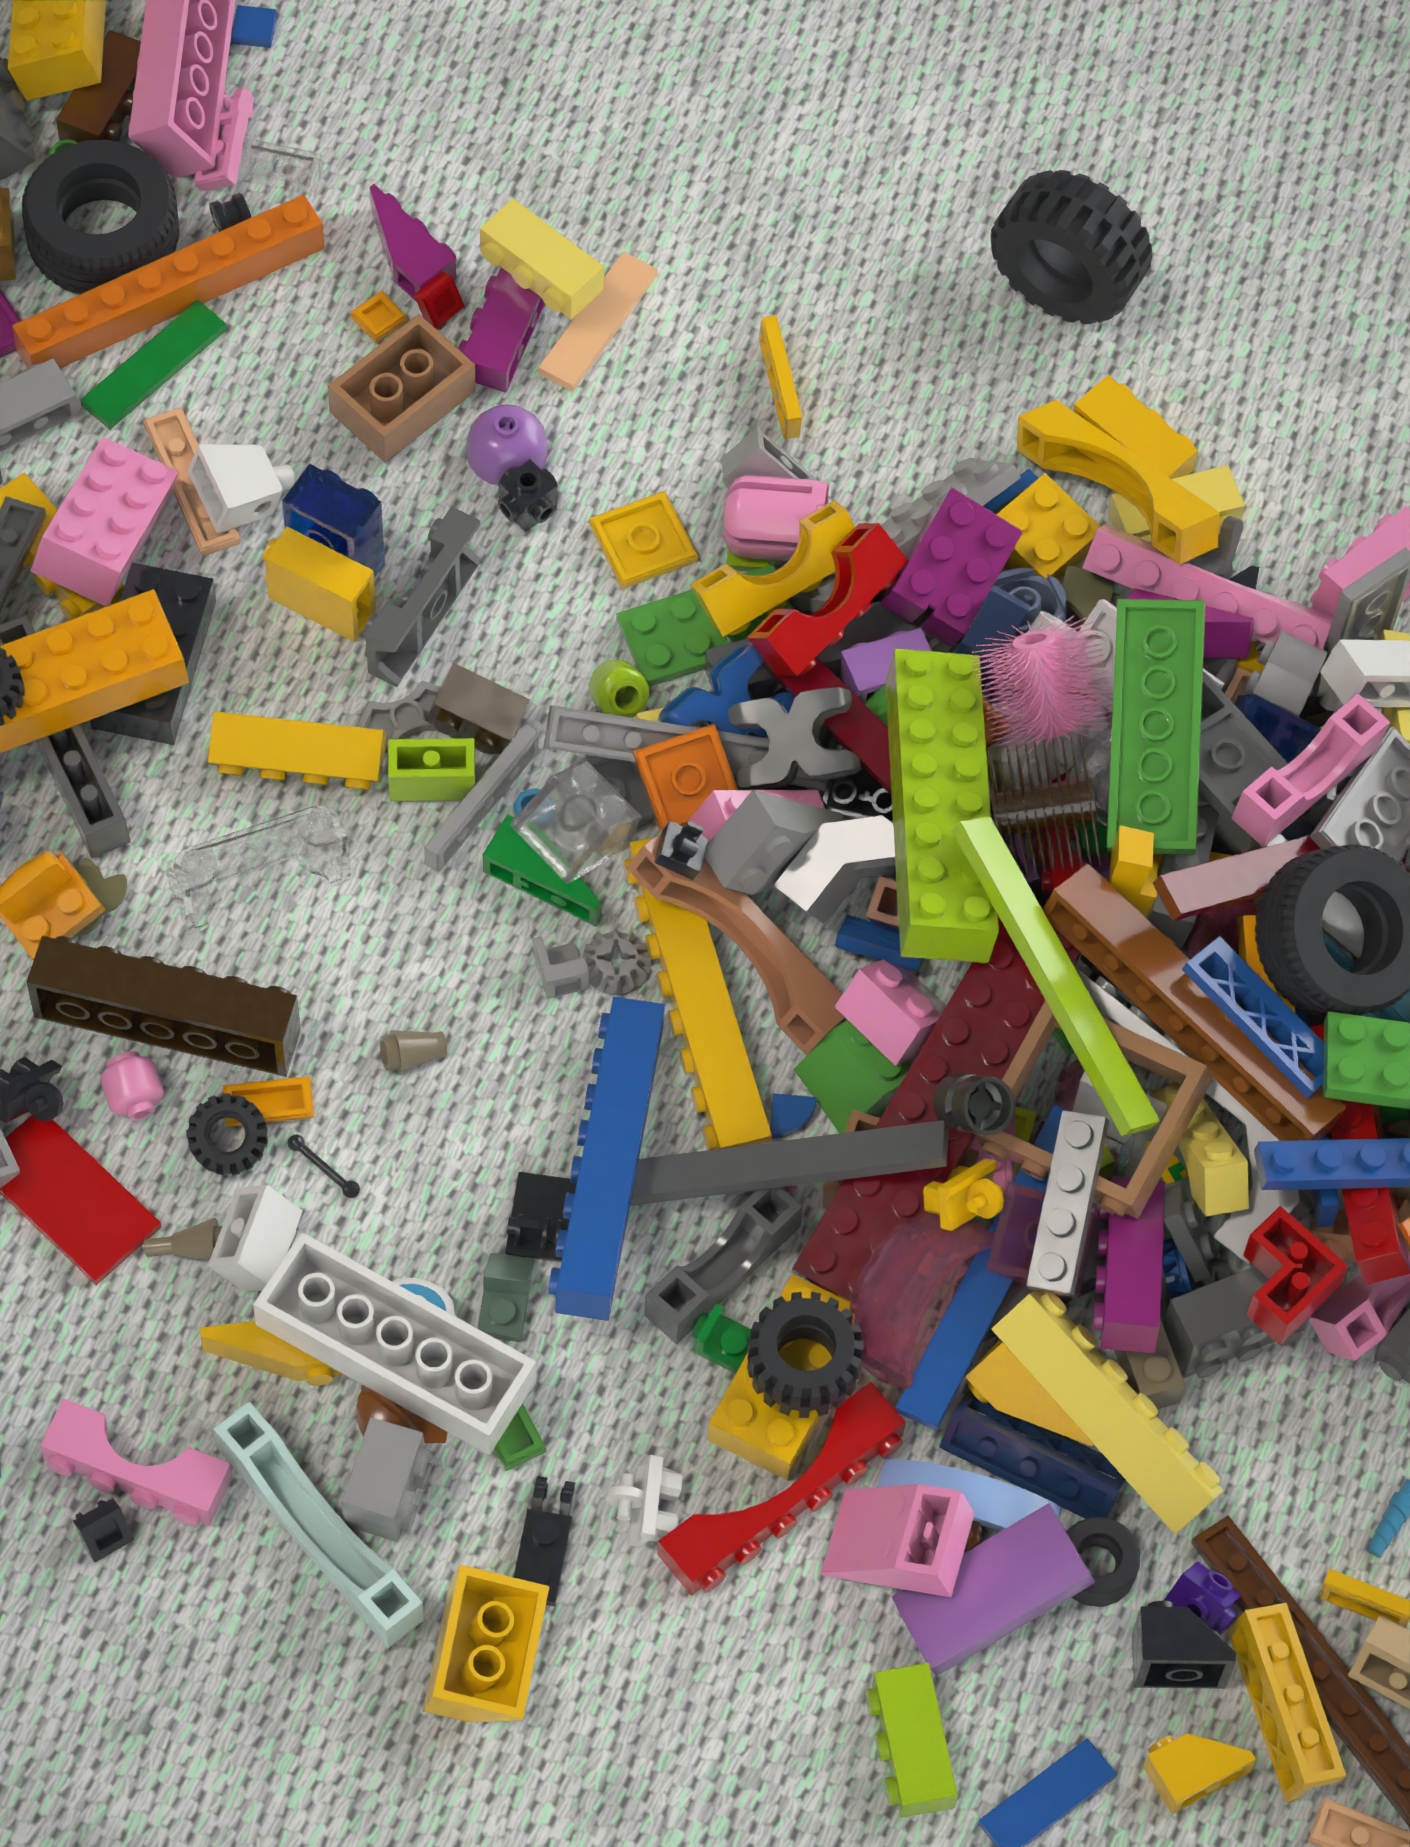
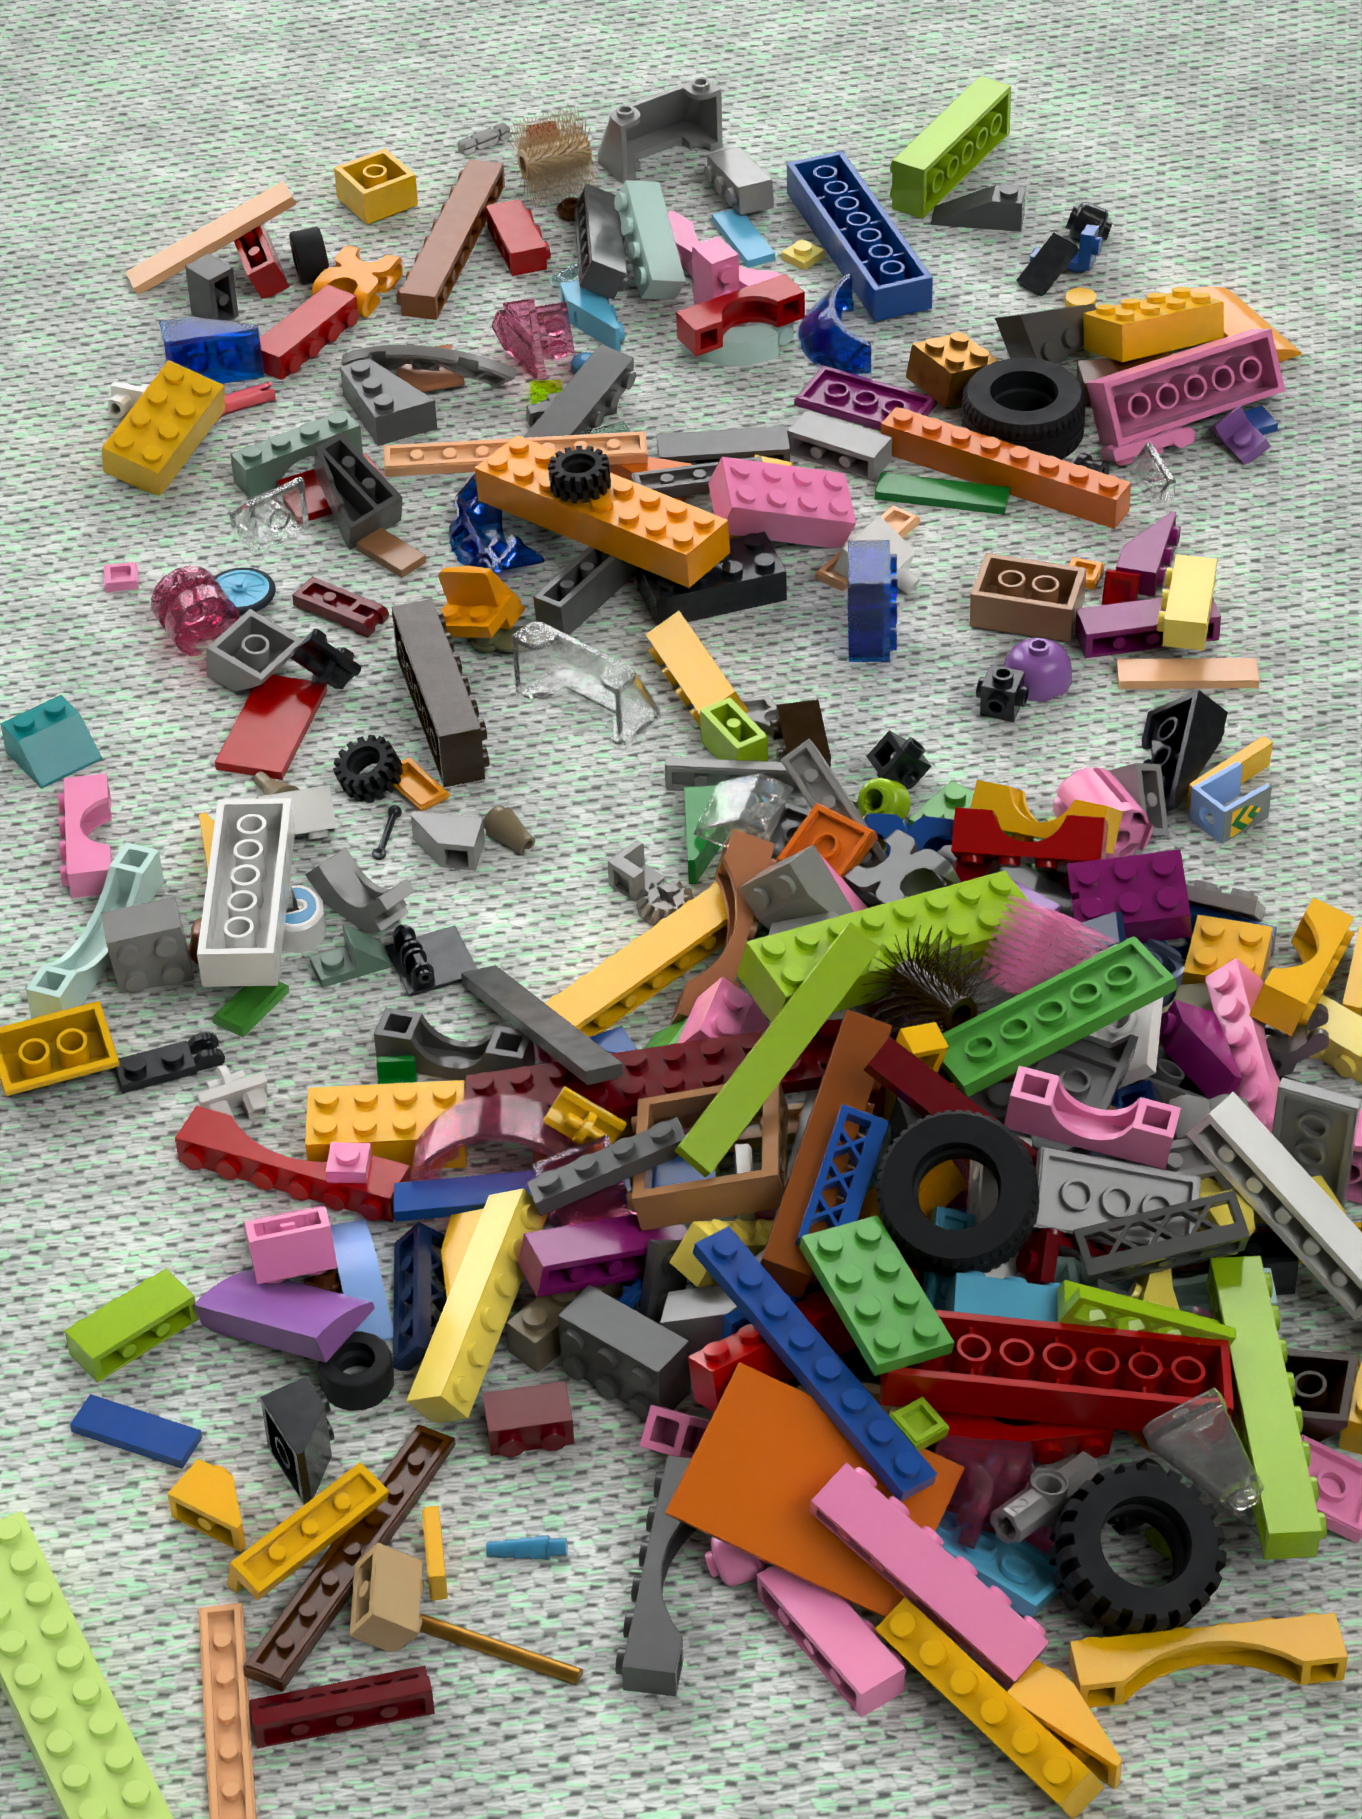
camera: 65 degrees right, 20 degrees down
(103, 1529) = (28, 842): black tile -> none
(131, 1085) = (372, 711): bright pink head -> none
(269, 53) = (1240, 436): none -> medium lavender slope
(319, 583) = (830, 622): yellow brick -> none
(392, 1112) = (449, 838): none -> light grey slope
(401, 632) = (866, 674): dark grey piece -> none
(433, 1241) = (355, 896): none -> light grey arch
(567, 656) = (899, 759): none -> black brick
(609, 1159) = (484, 947): blue brick -> none
(643, 540) = (1029, 769): yellow tile -> none
(682, 849) = (748, 851): black tile -> none
(712, 391) = (1182, 741): none -> black wedge
(805, 1320) = (385, 1094): black tyre -> none
(814, 423) = (1234, 818): none -> light blue piece
(840, 1435) = (348, 1162): none -> bright pink plate
(974, 1103) = (644, 1067): pearl dark grey wheel -> none
(1206, 1595) = (359, 1438): dark purple brick -> none
(1250, 1438) = (528, 1419): none -> brick
(1299, 1274) = (650, 1335): red brick -> none

